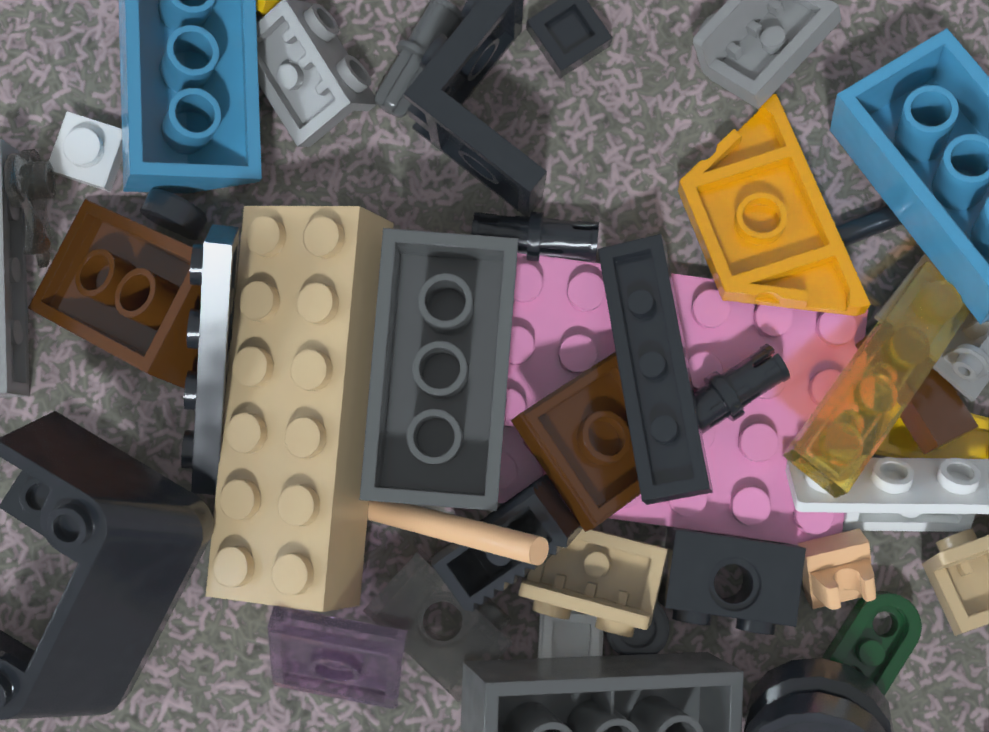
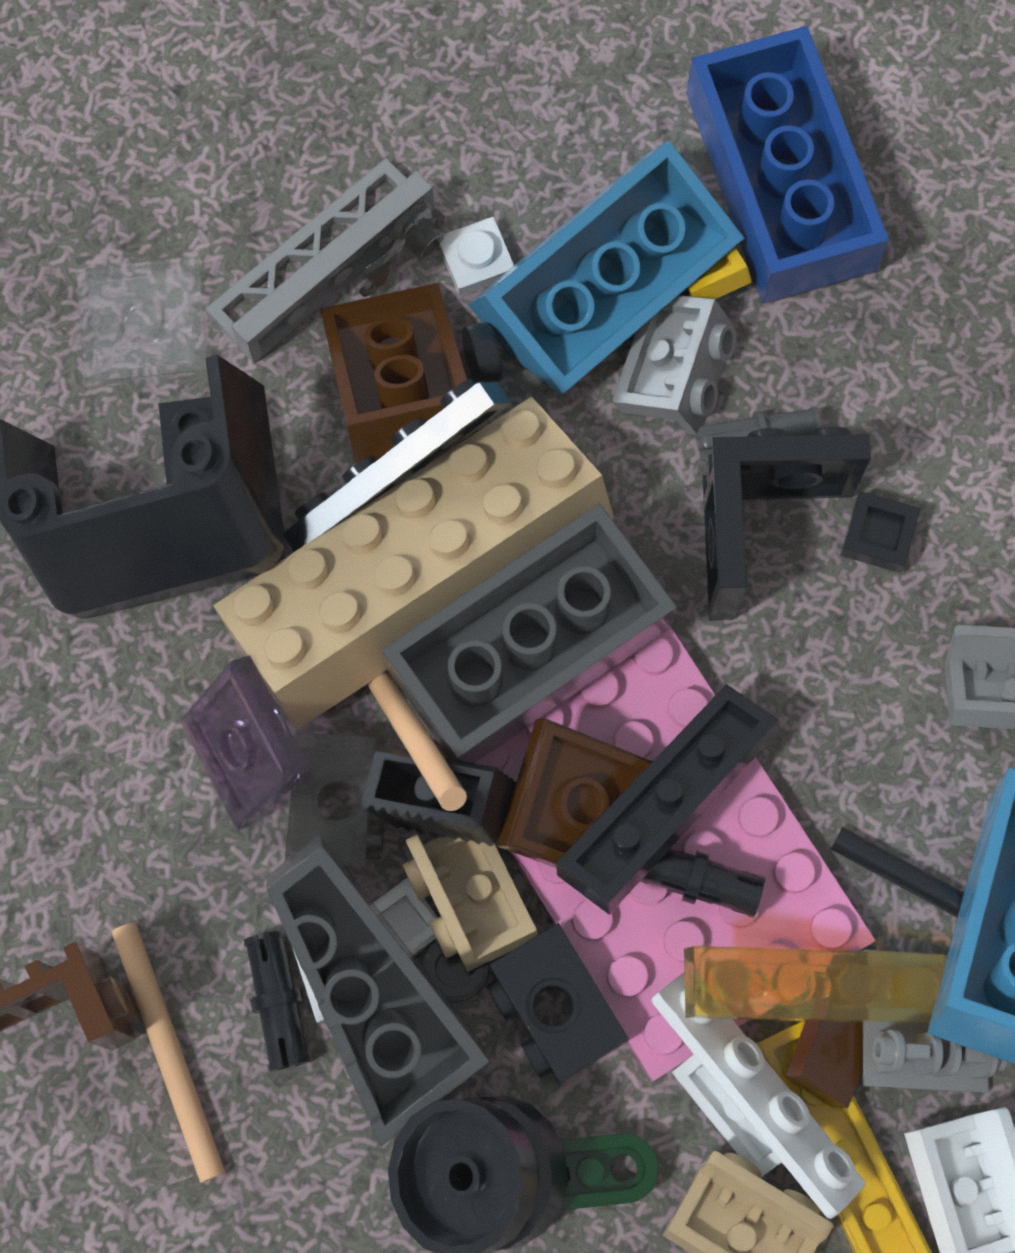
camera: 50 degrees right, 10 degrees down
(542, 235) = (702, 639): black pin -> none
(768, 222) = (866, 803): light orange wing -> none
(838, 570) = (635, 1089): light nougat tile -> none

